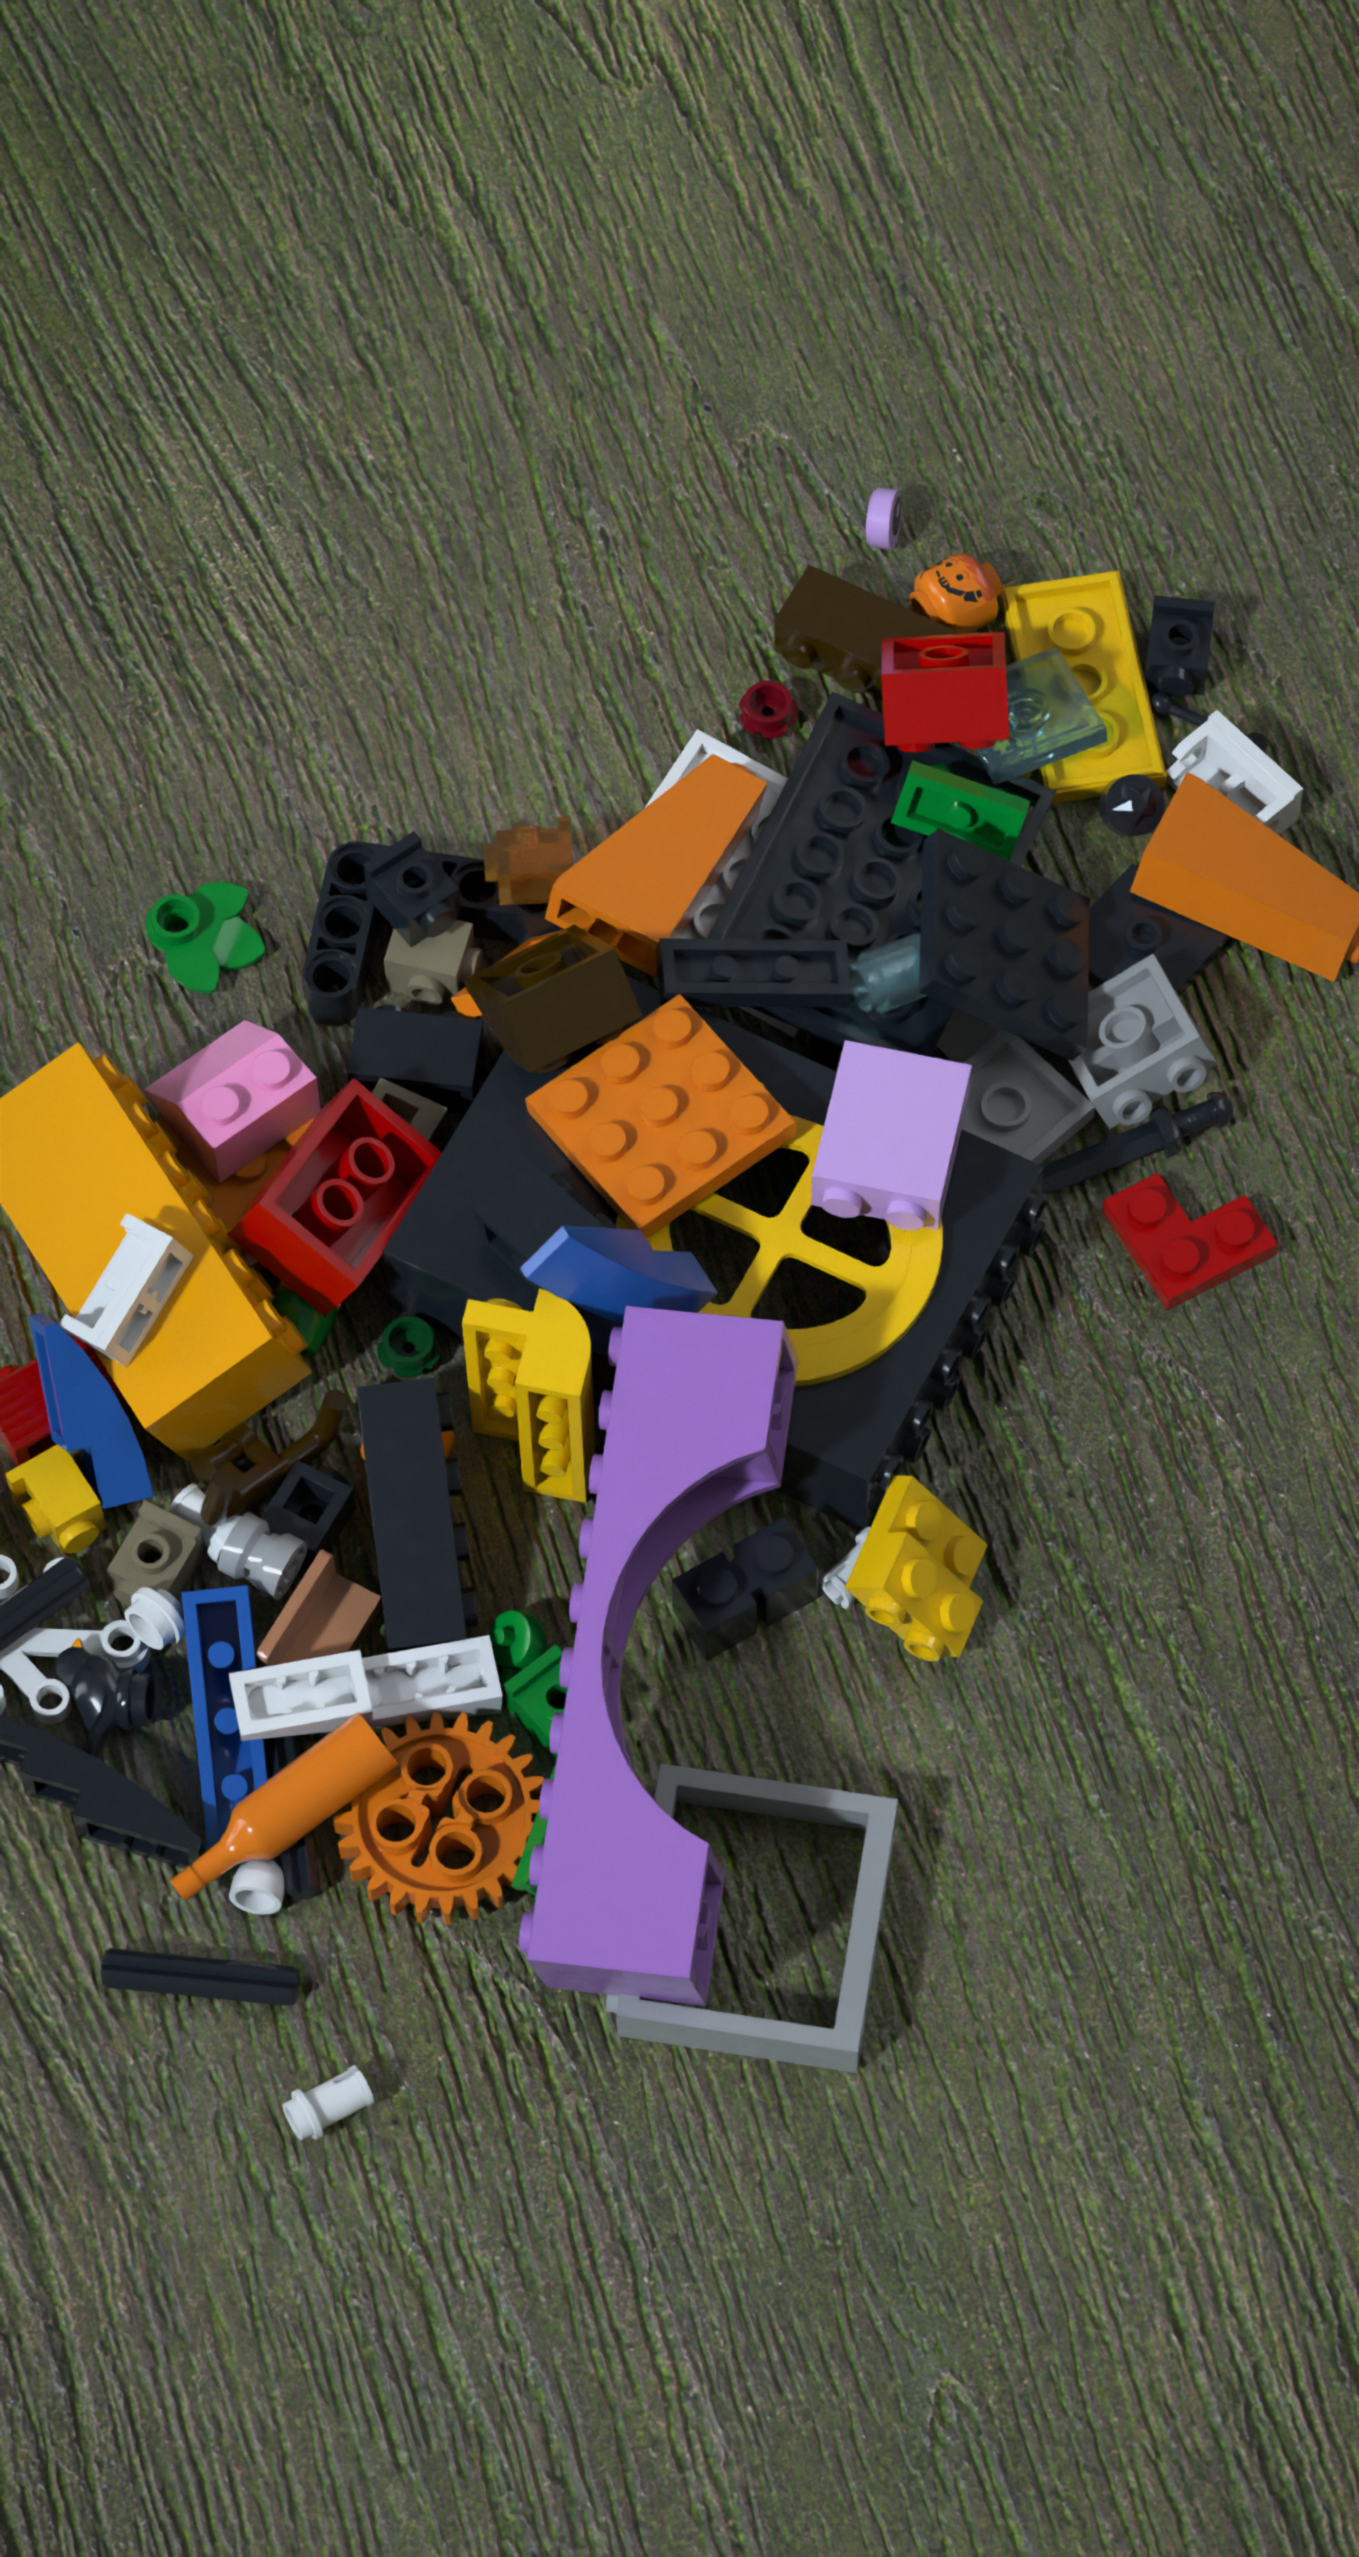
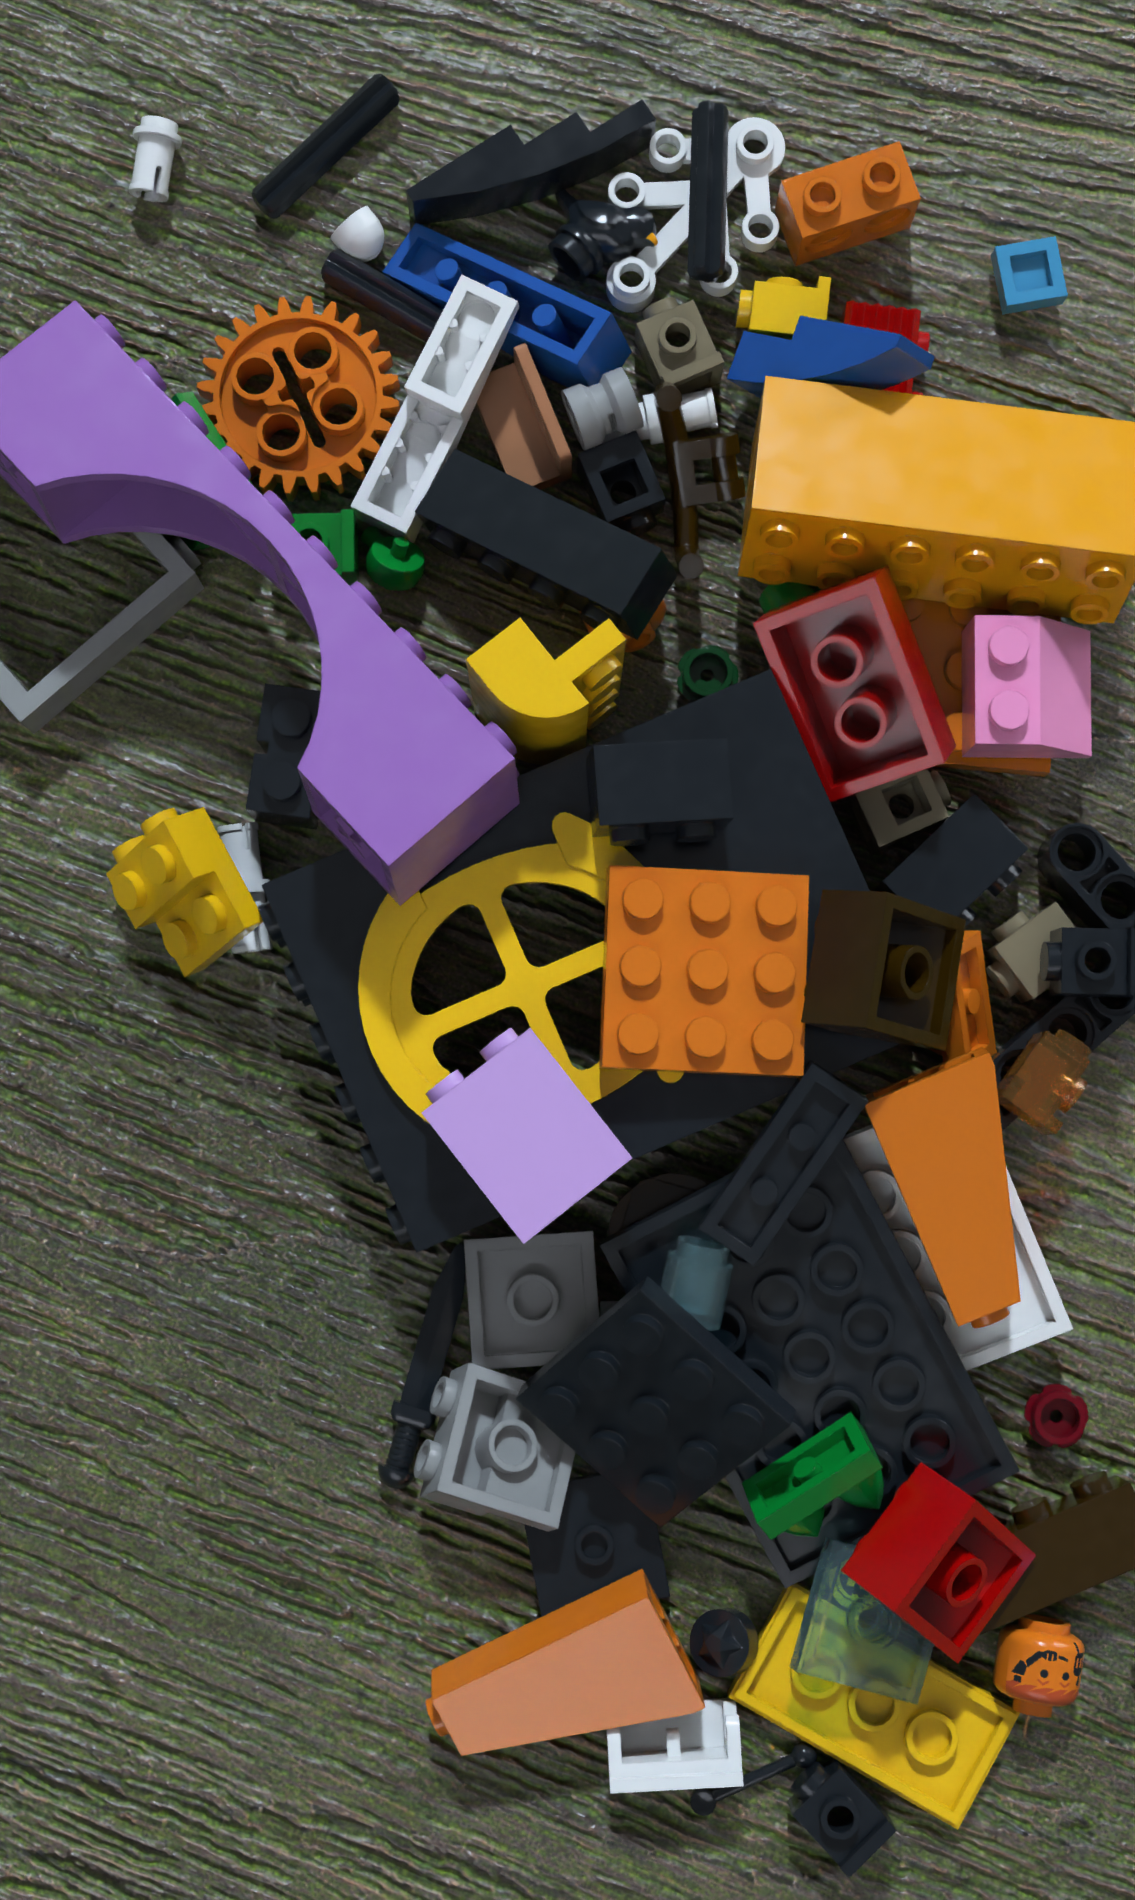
camera: 125 degrees right, 20 degrees up
(130, 1292) = (883, 428): white hinge -> none
(155, 1617) = (622, 297): white plate -> none
(293, 1802) = (384, 289): orange piece -> none
(617, 1269) = (554, 791): blue slope -> none
(1182, 1255) = (297, 1335): red plate -> none

